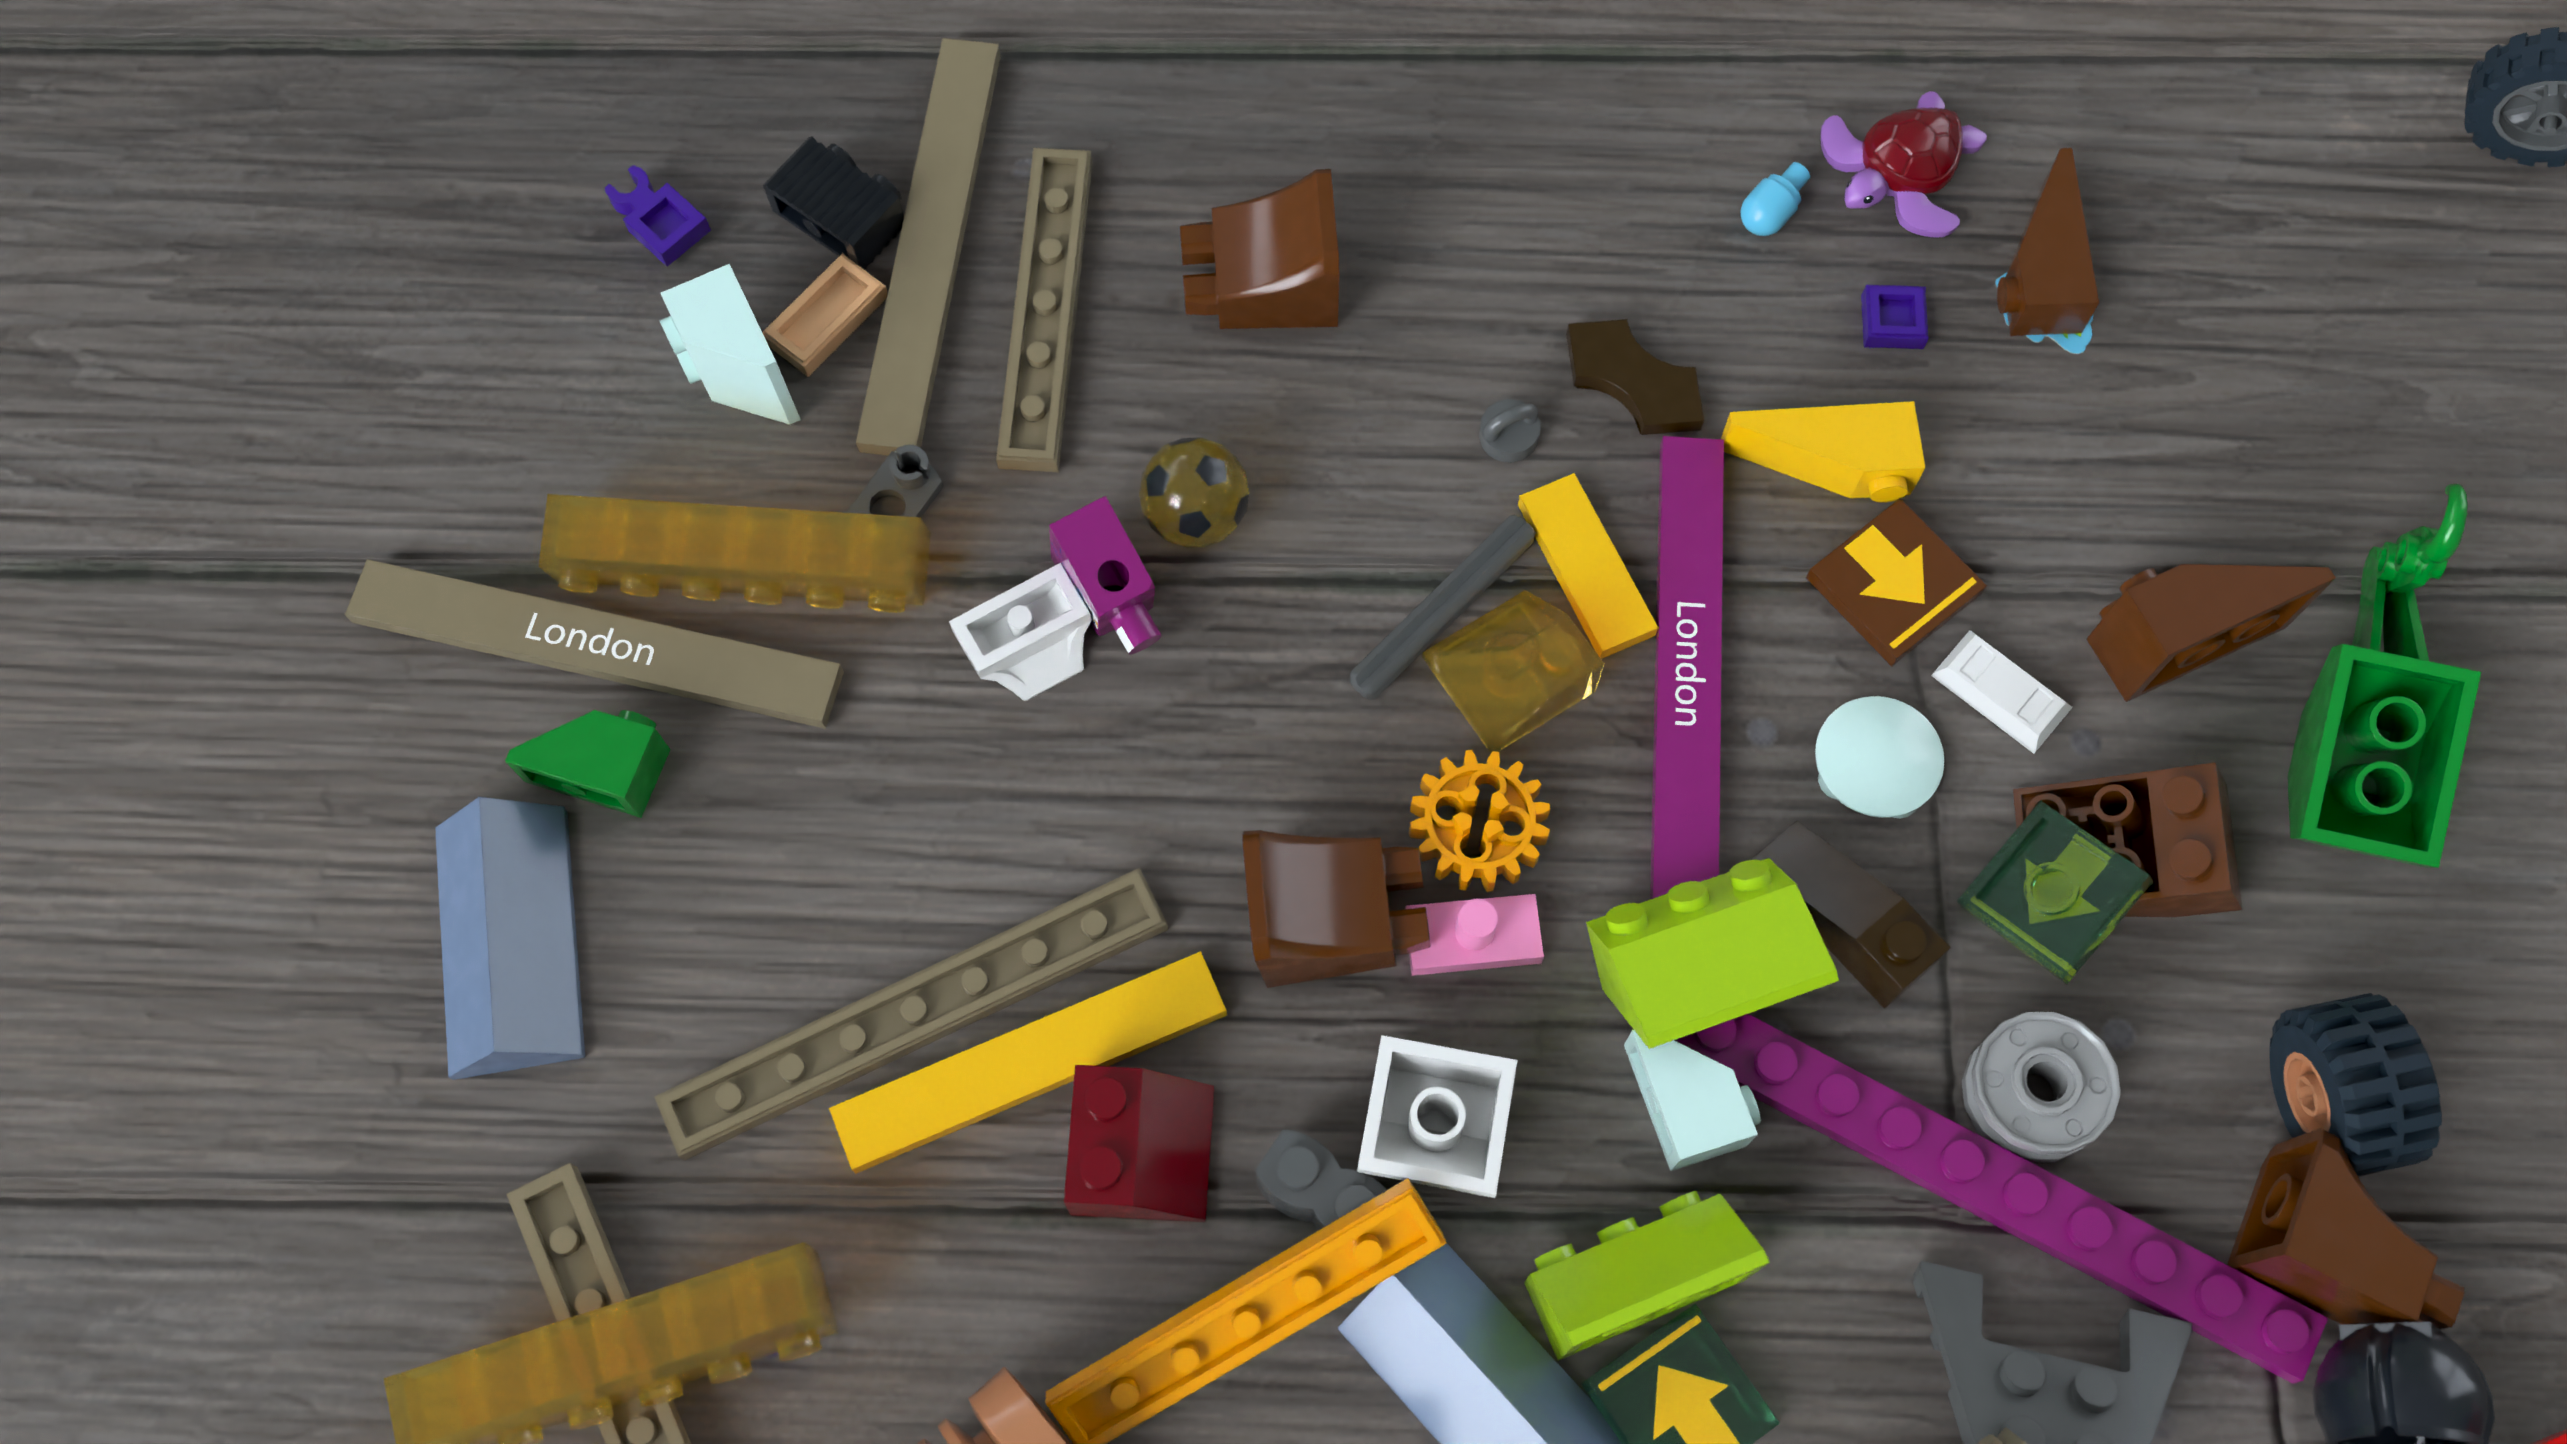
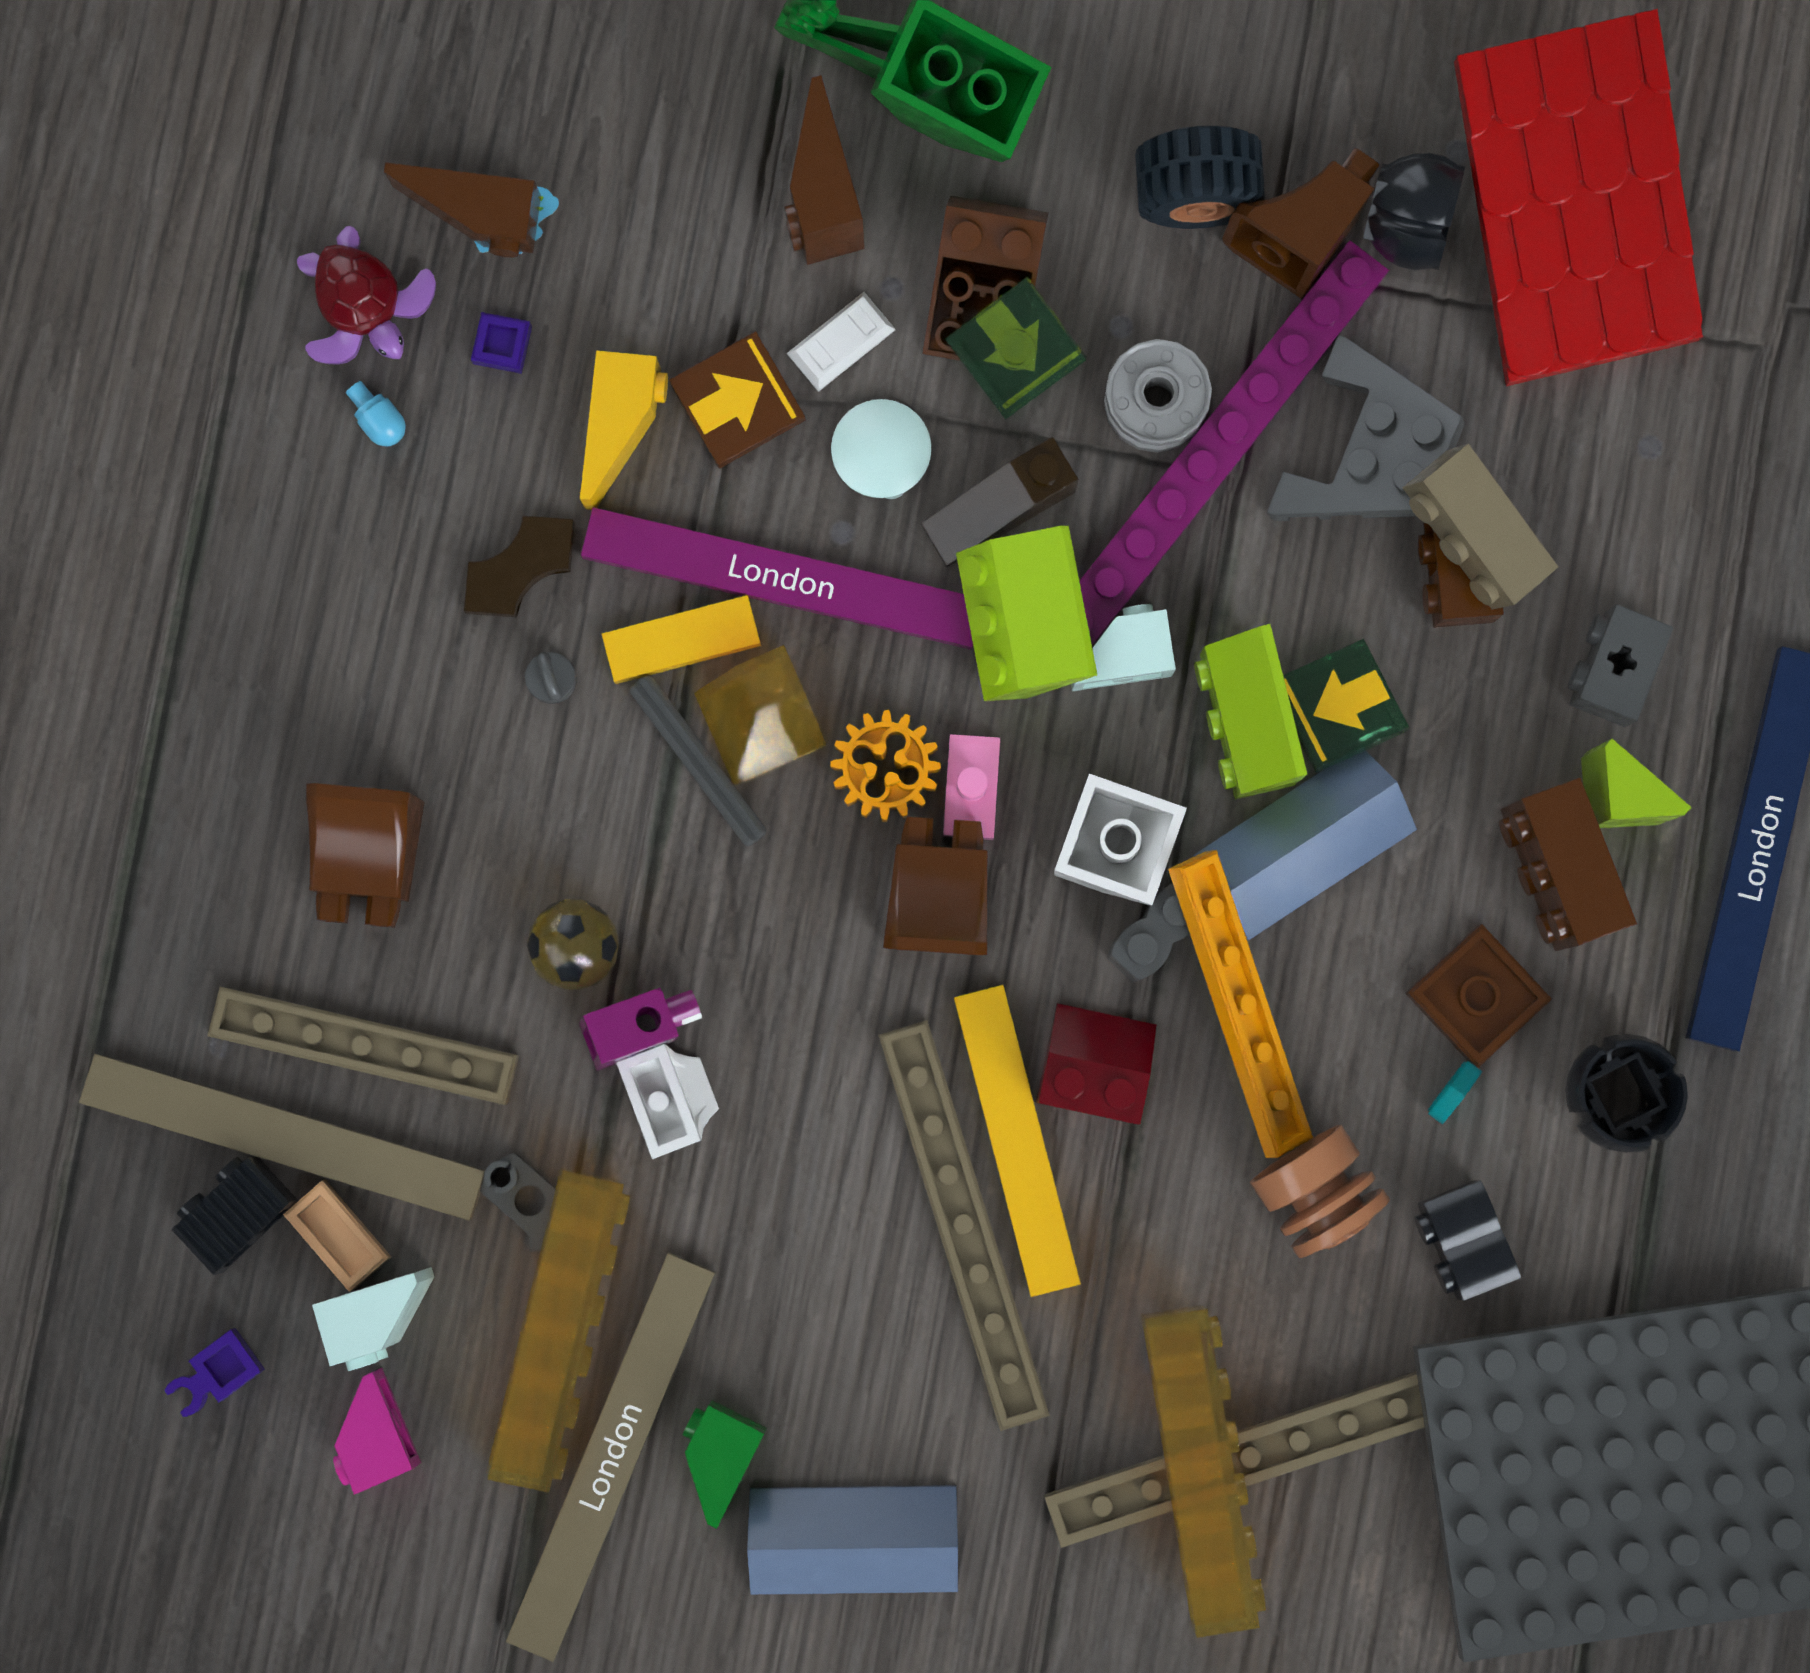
camera: 80 degrees left, 15 degrees up
(599, 381) = (373, 1437): none -> dark pink slope

